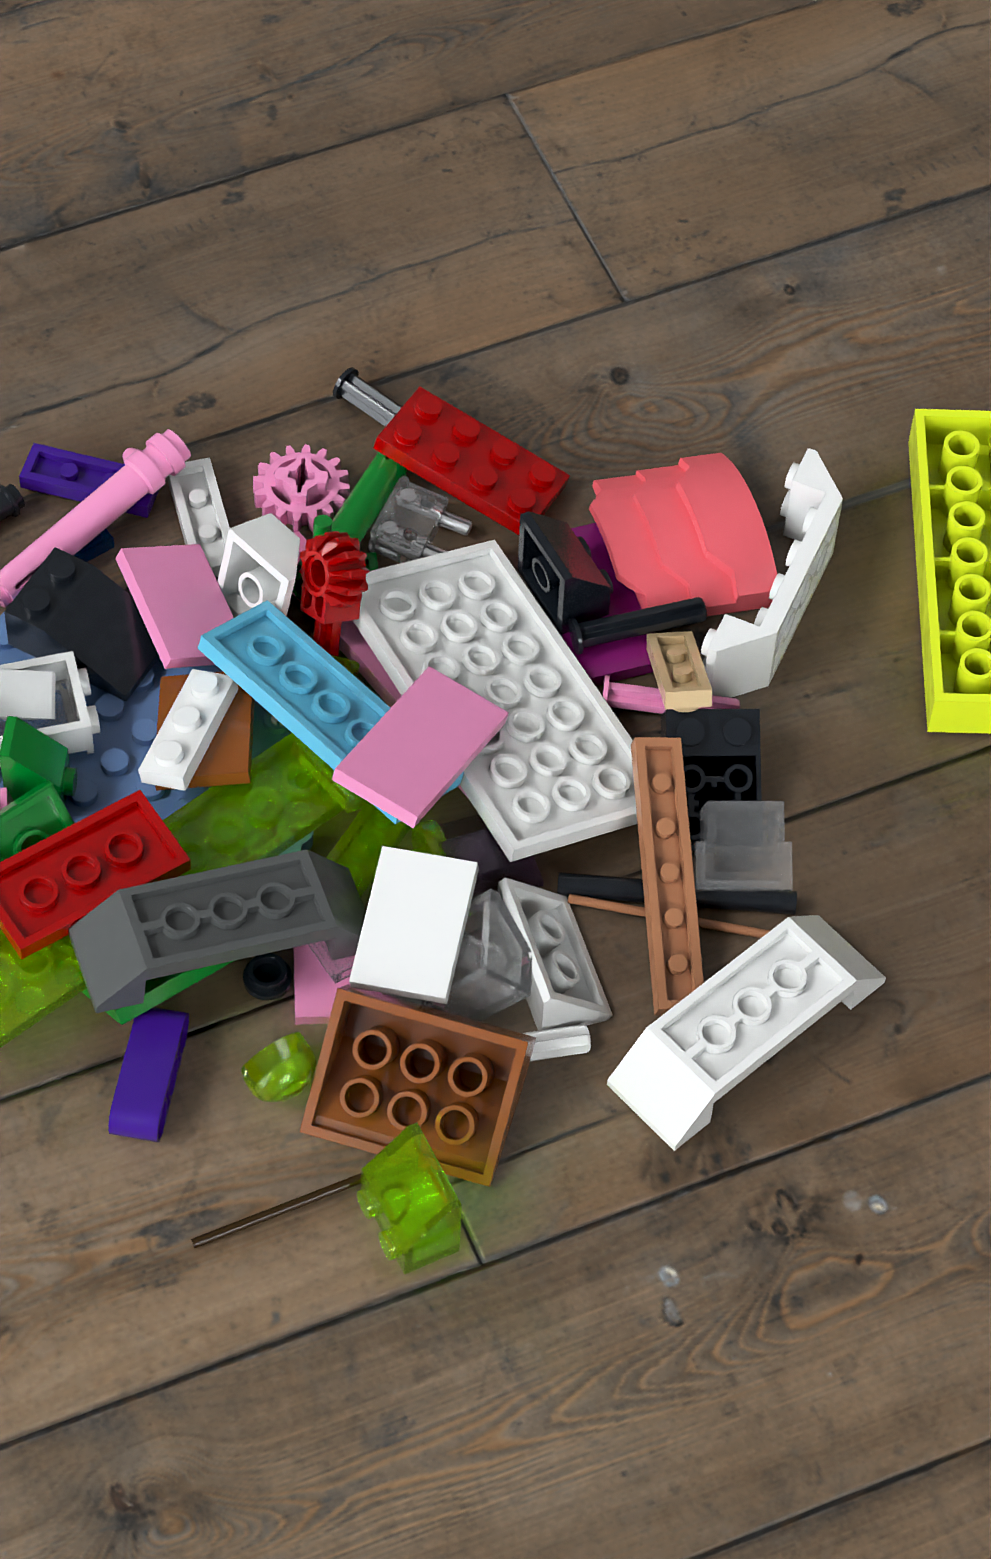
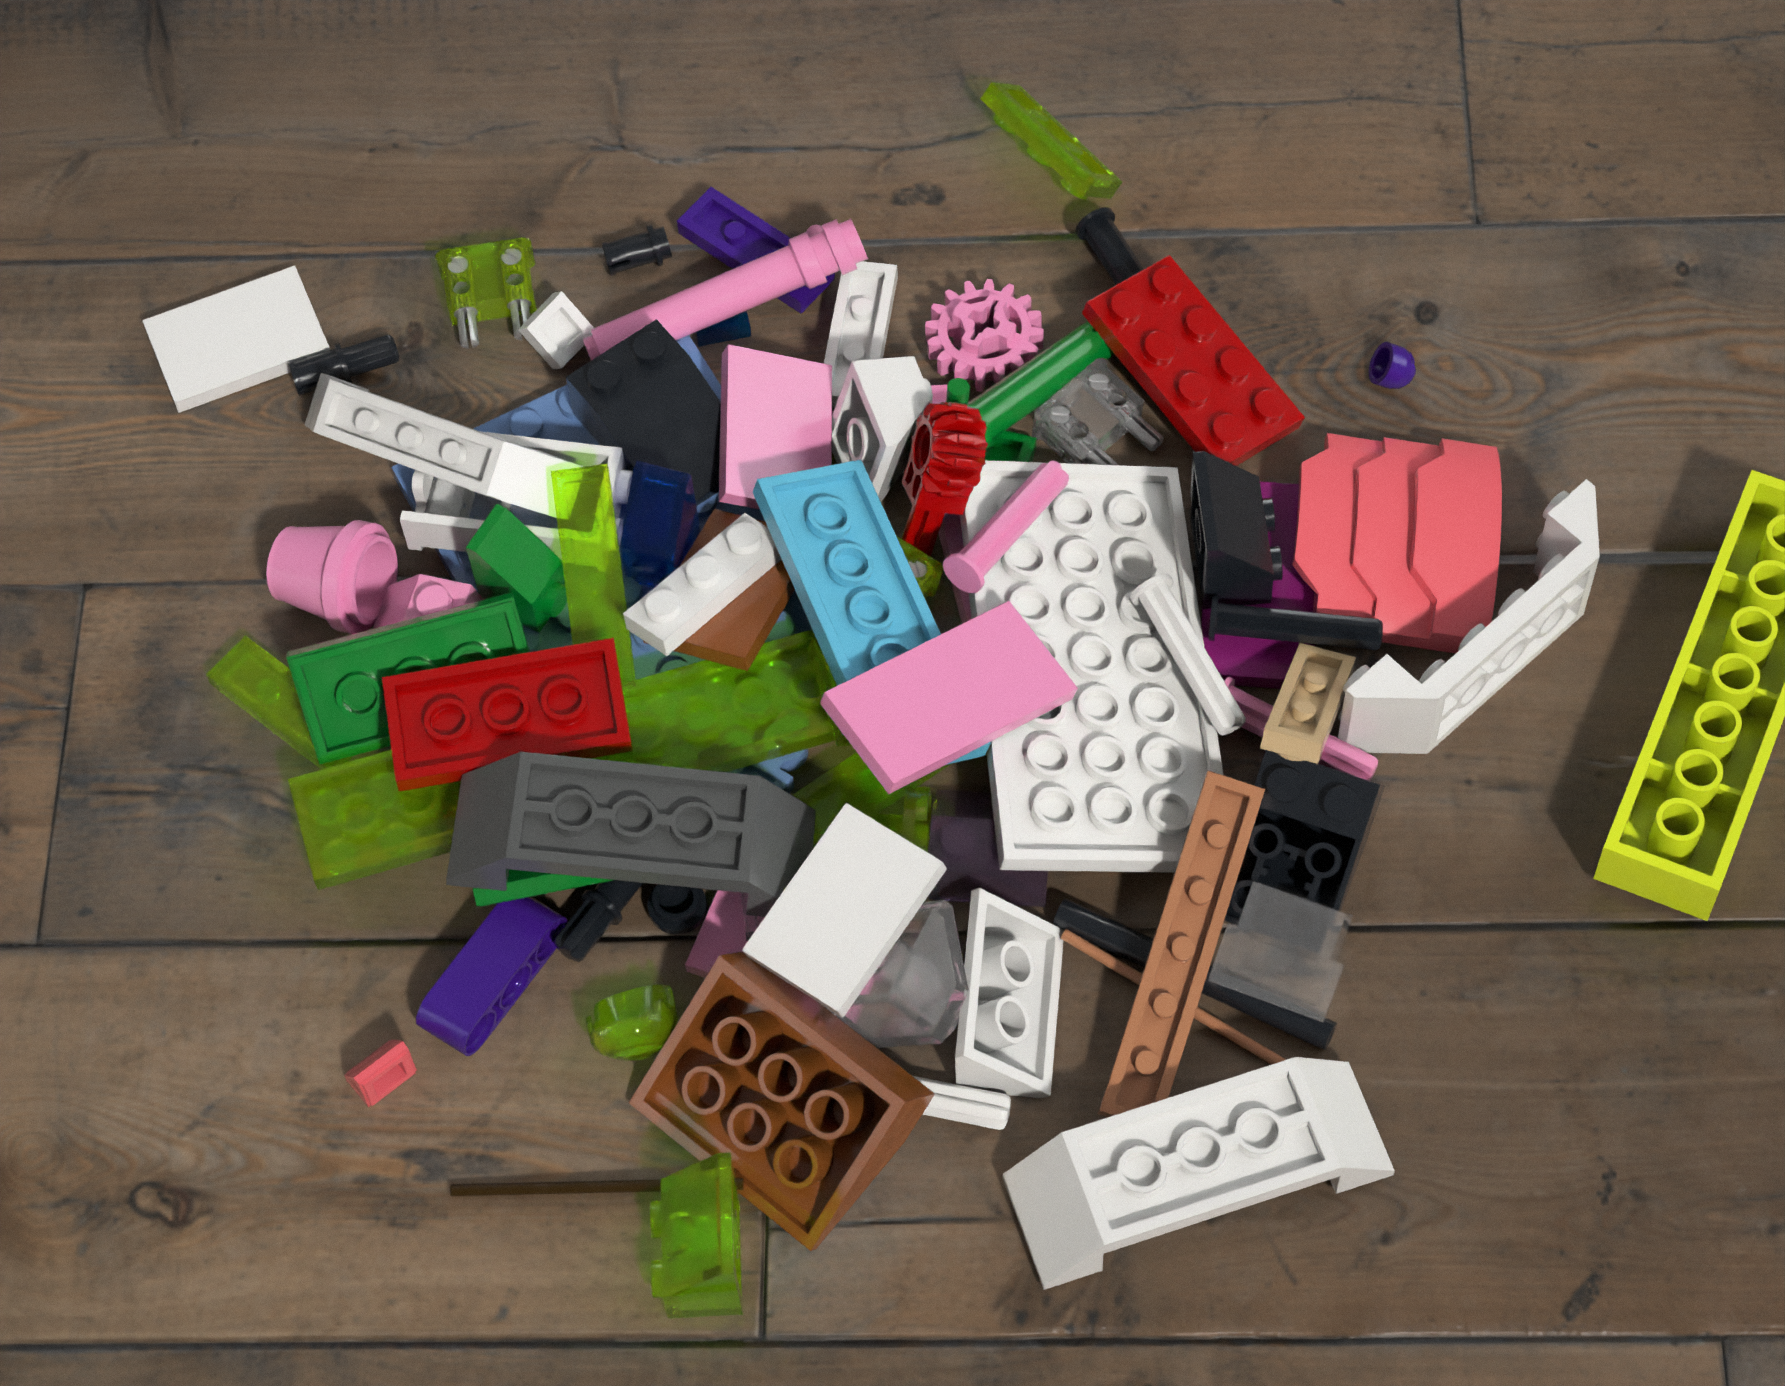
camera: 30 degrees right, 5 degrees up
(90, 735) = (592, 560): none -> clear neon green tile
(96, 1175) = (381, 1072): none -> coral slope
(130, 698) = (658, 523): none -> clear blue slope
(209, 1002) = (594, 917): none -> black axle
(282, 334) = (1050, 142): none -> clear neon green plate
(387, 652) = (1005, 527): none -> bright pink axle
(573, 665) = (1189, 653): none -> white axle
(615, 420) = (1391, 366): none -> dark purple hinge

